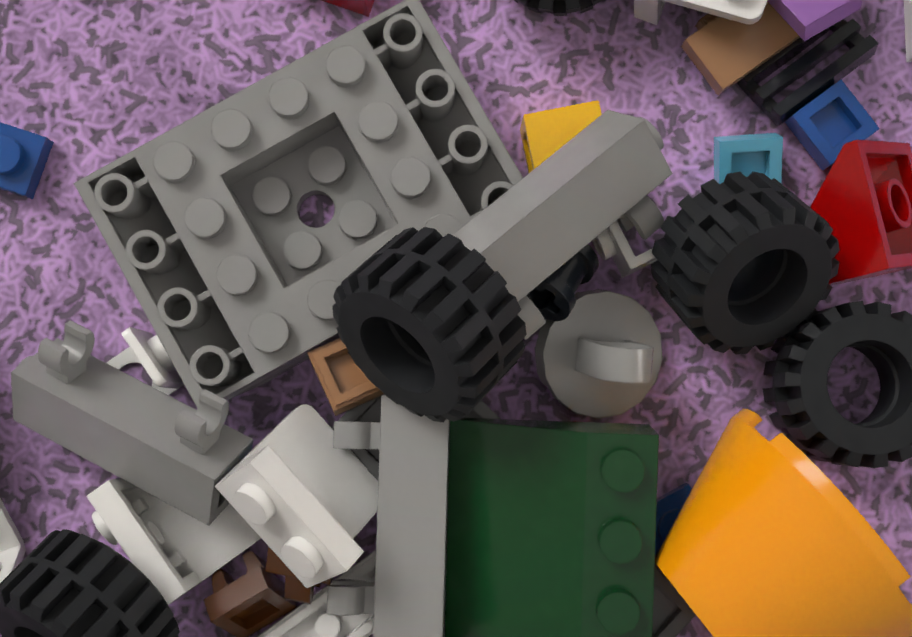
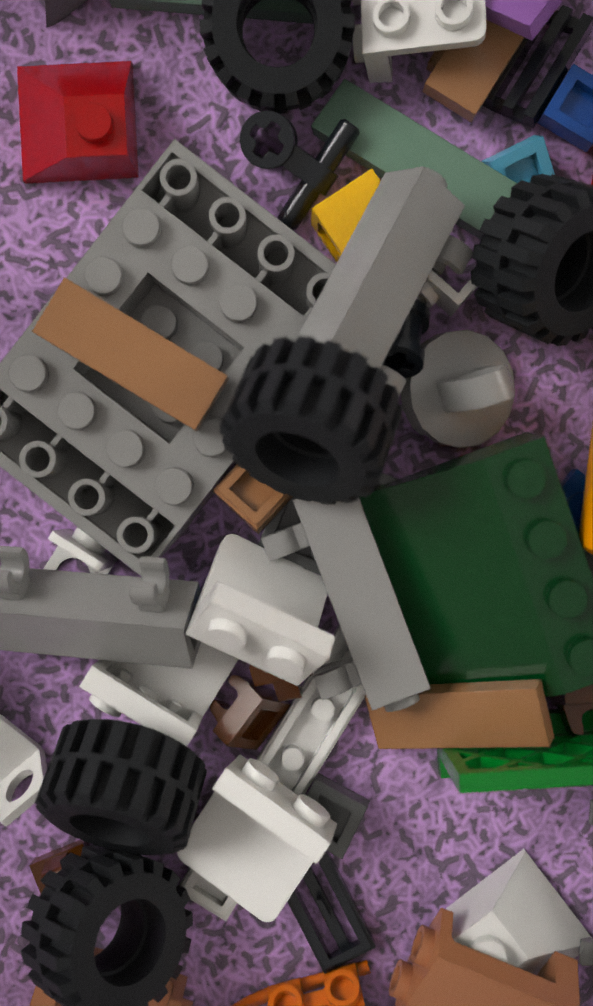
camera: 20 degrees left, 5 degrees up
(281, 185) = (130, 354): none -> medium nougat tile
(542, 83) = (316, 173): none -> black piece
(632, 84) = (396, 143): none -> sand green tile

